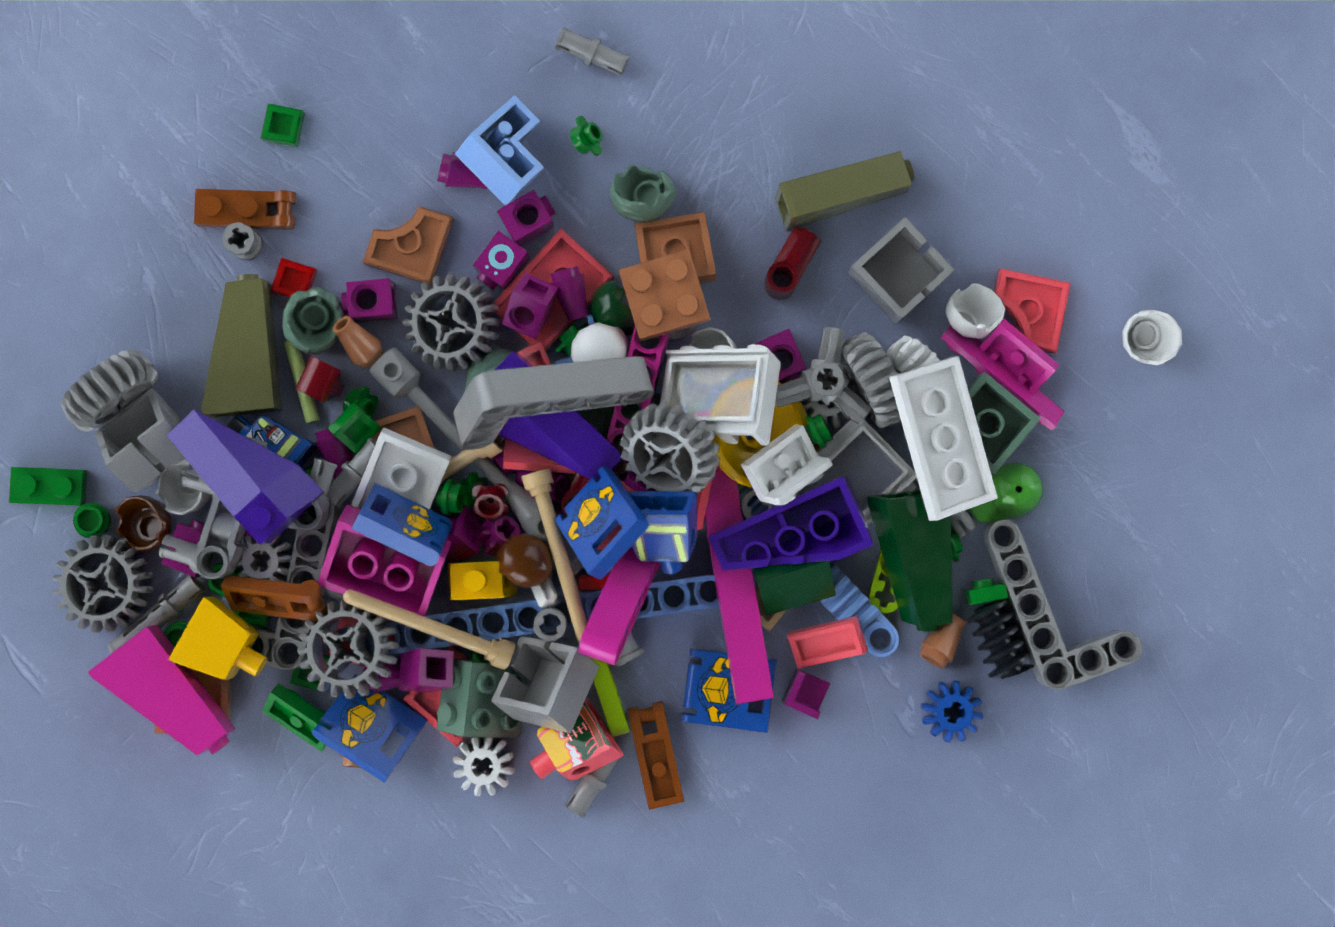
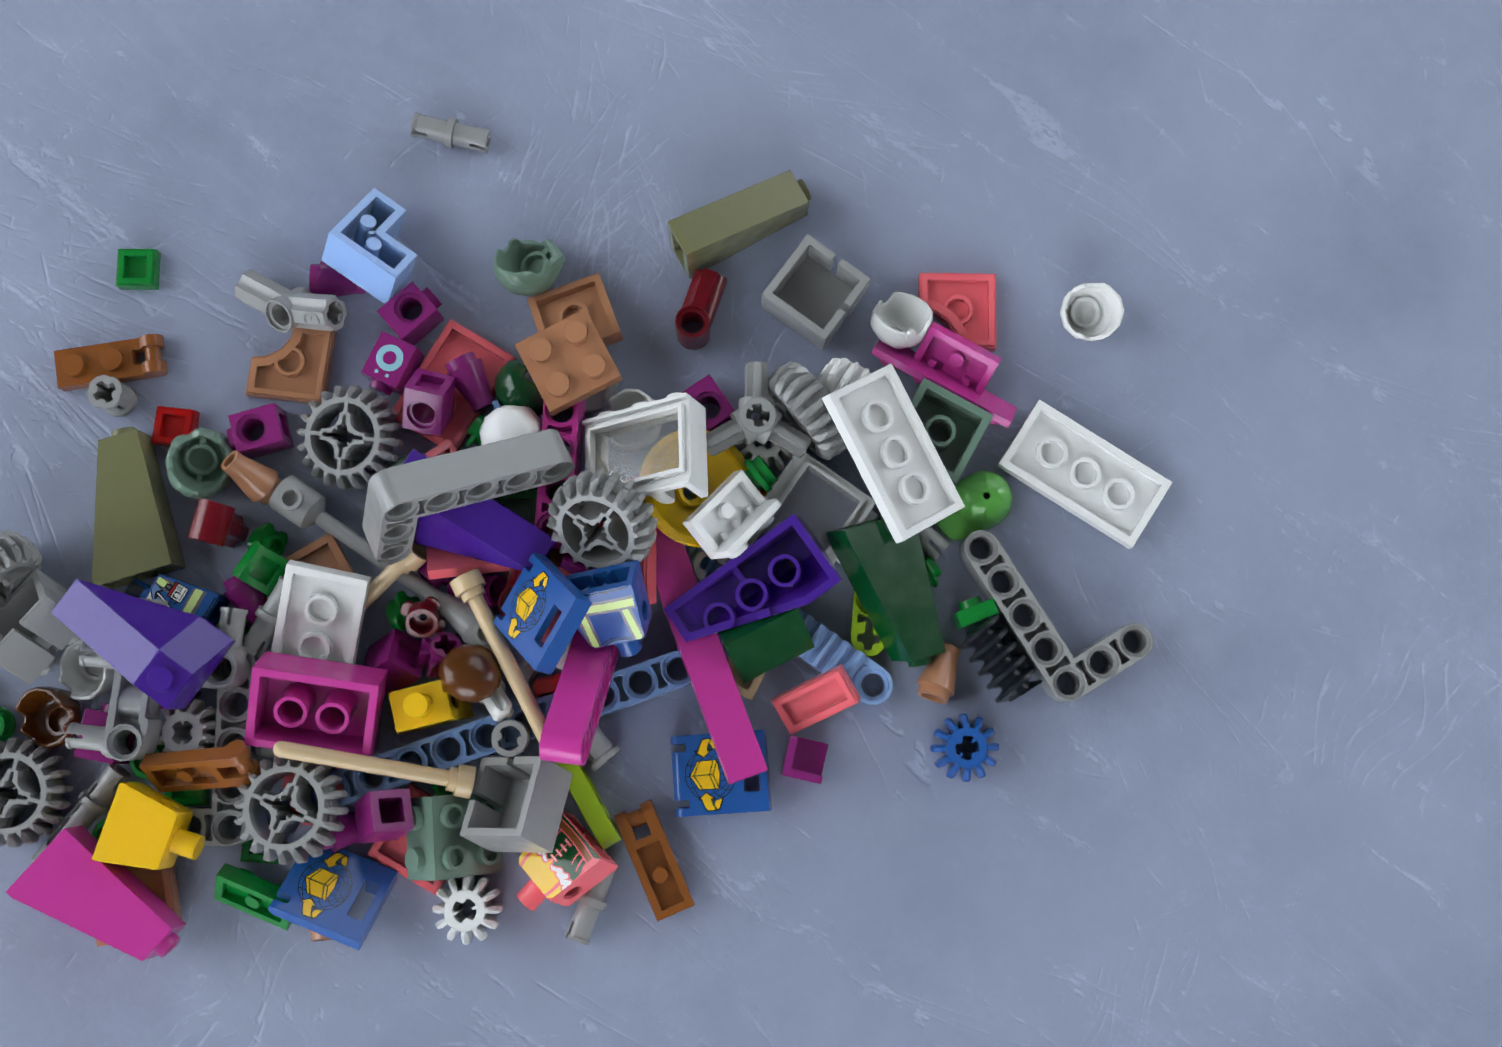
camera: 15 degrees left, 5 degrees down
(297, 367) = (210, 552): yellowish green piece -> none
(404, 526) = (326, 659): blue container -> none
(418, 191) = (290, 308): none -> light grey piece
(450, 497) = (378, 622): green plate -> none
(586, 137) = (460, 219): green plate -> none
(1112, 485) = (1084, 474): none -> white plate

